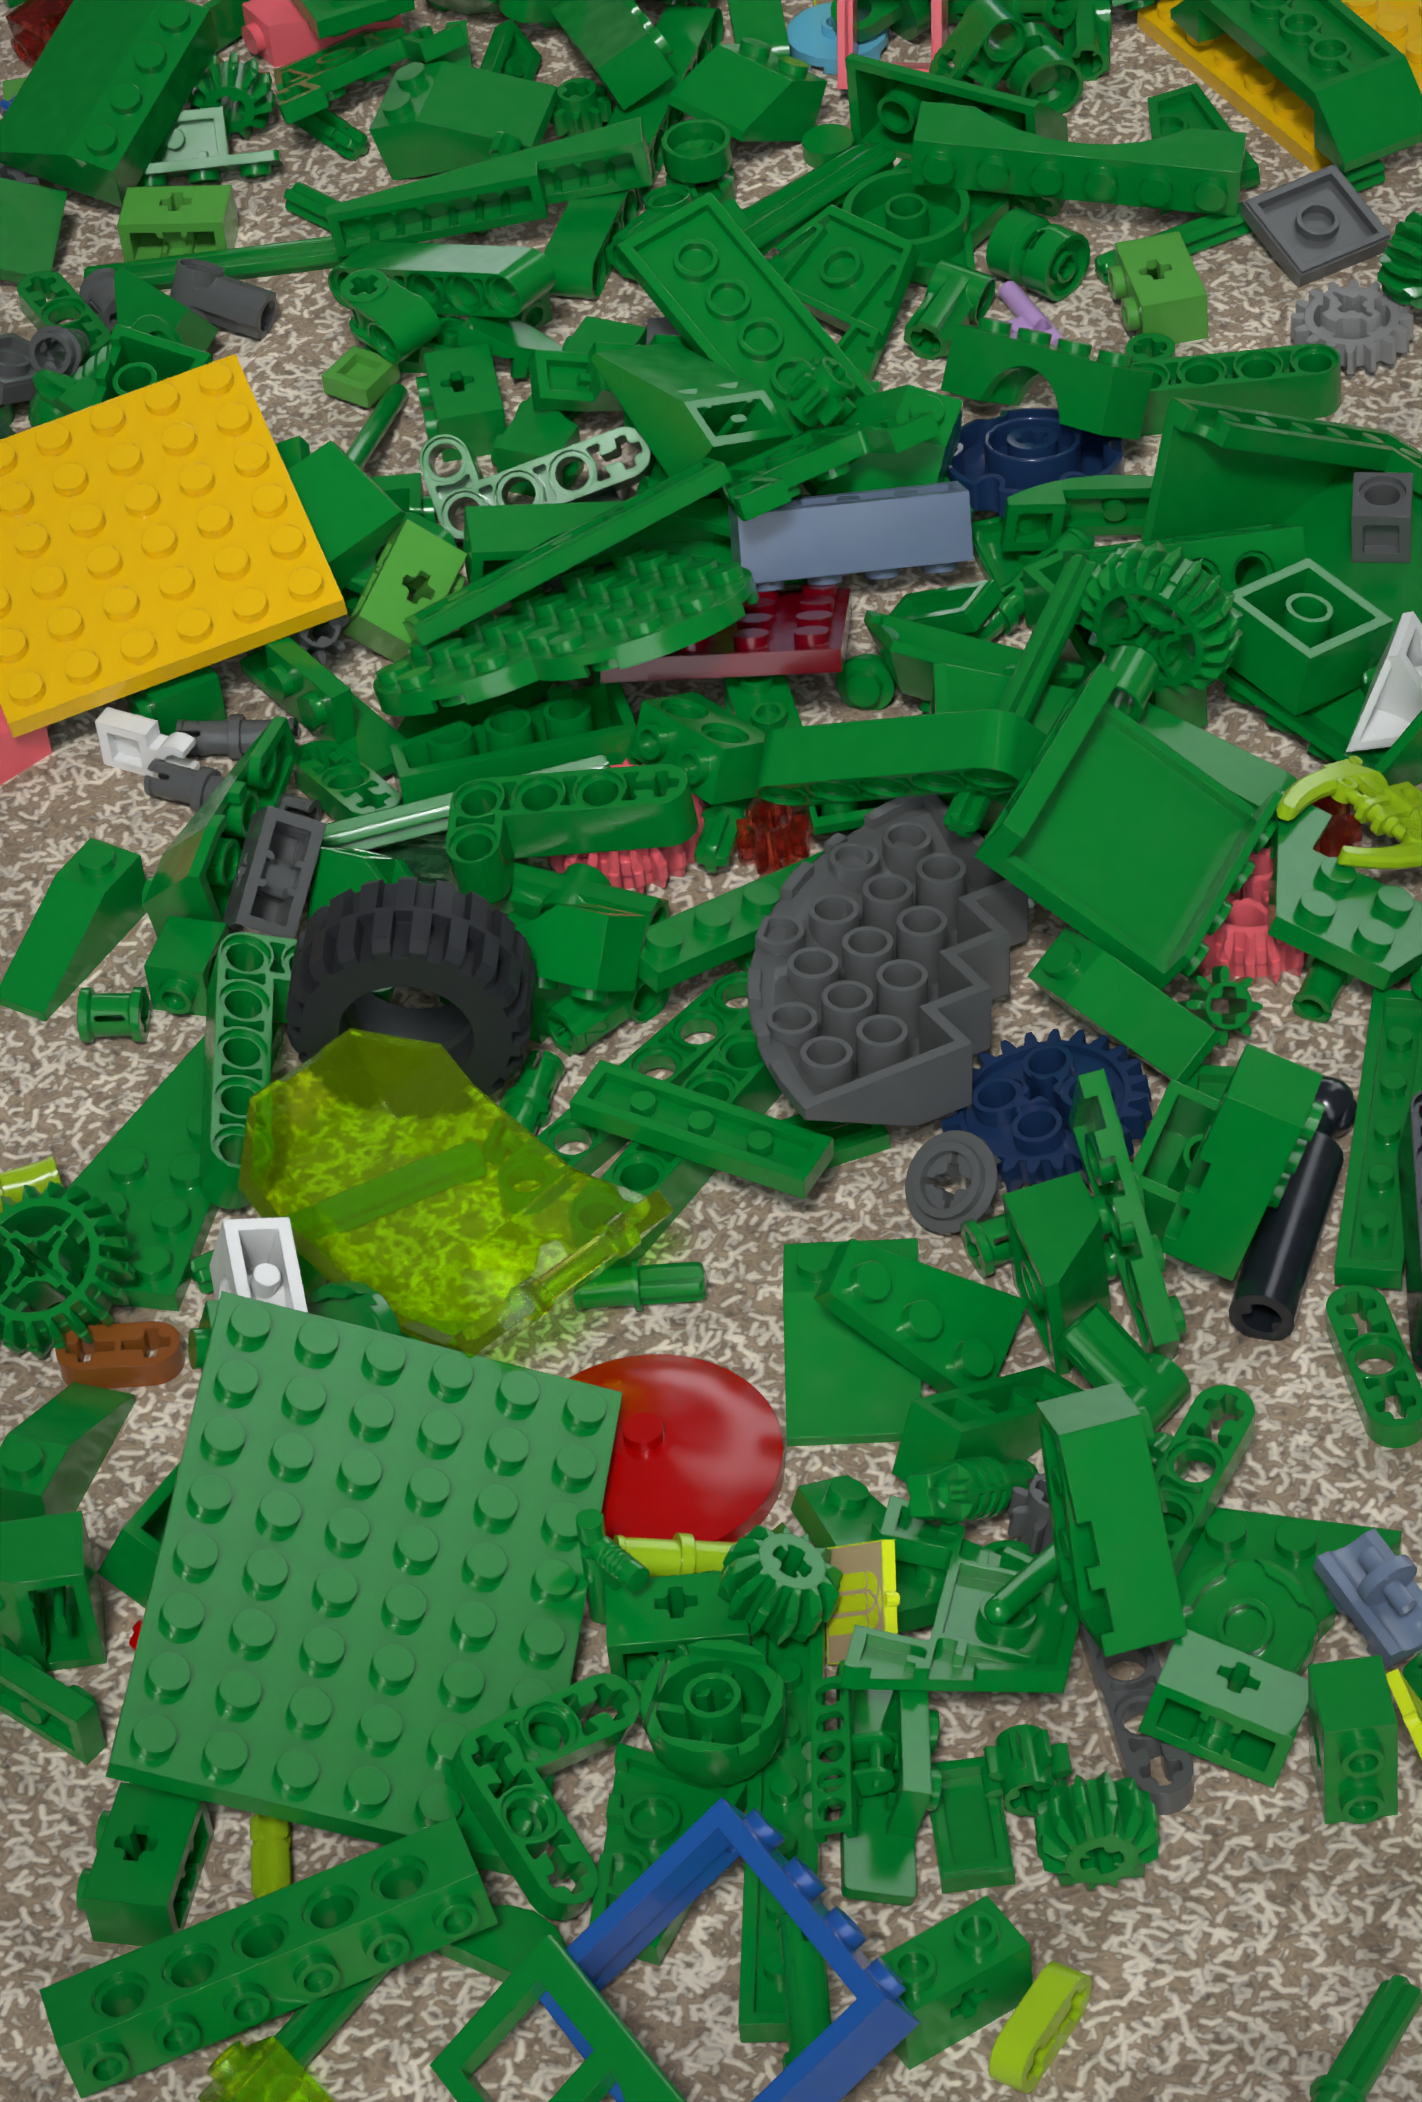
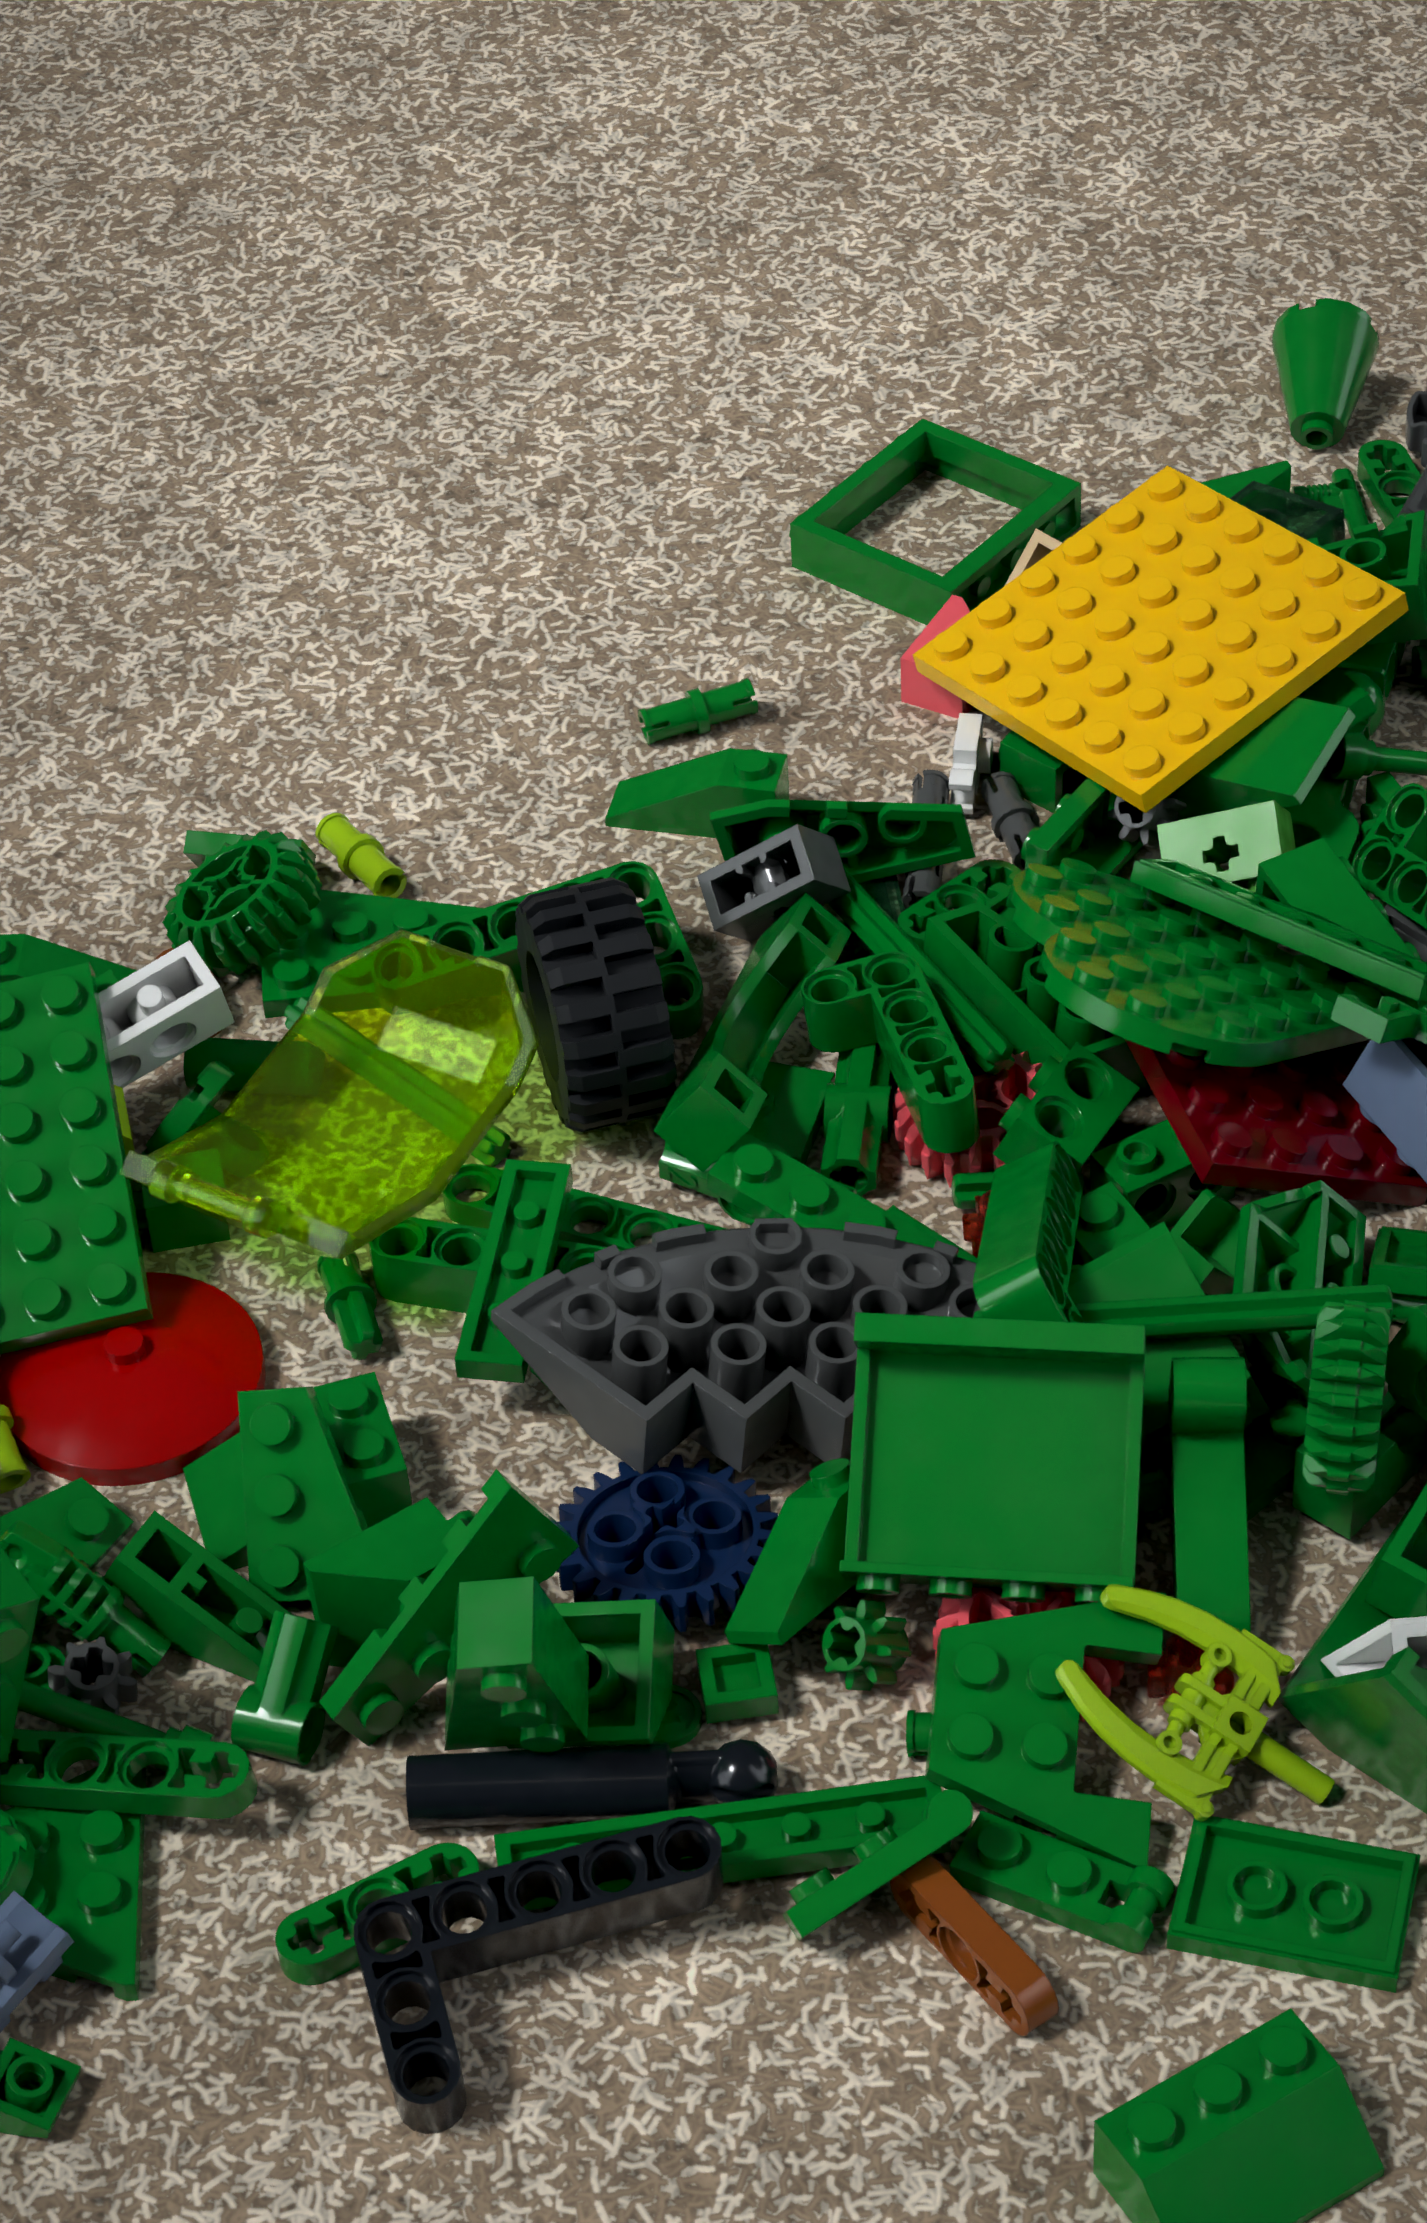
camera: 70 degrees right, 0 degrees up
(113, 1014) = (599, 844): green bush -> none
(183, 964) = (677, 868): green brick -> none
(531, 1096) = (587, 1158): green pin -> none
(867, 699) = (1209, 1241): none -> green panel
(942, 1160) = (548, 1478): dark grey gear -> none

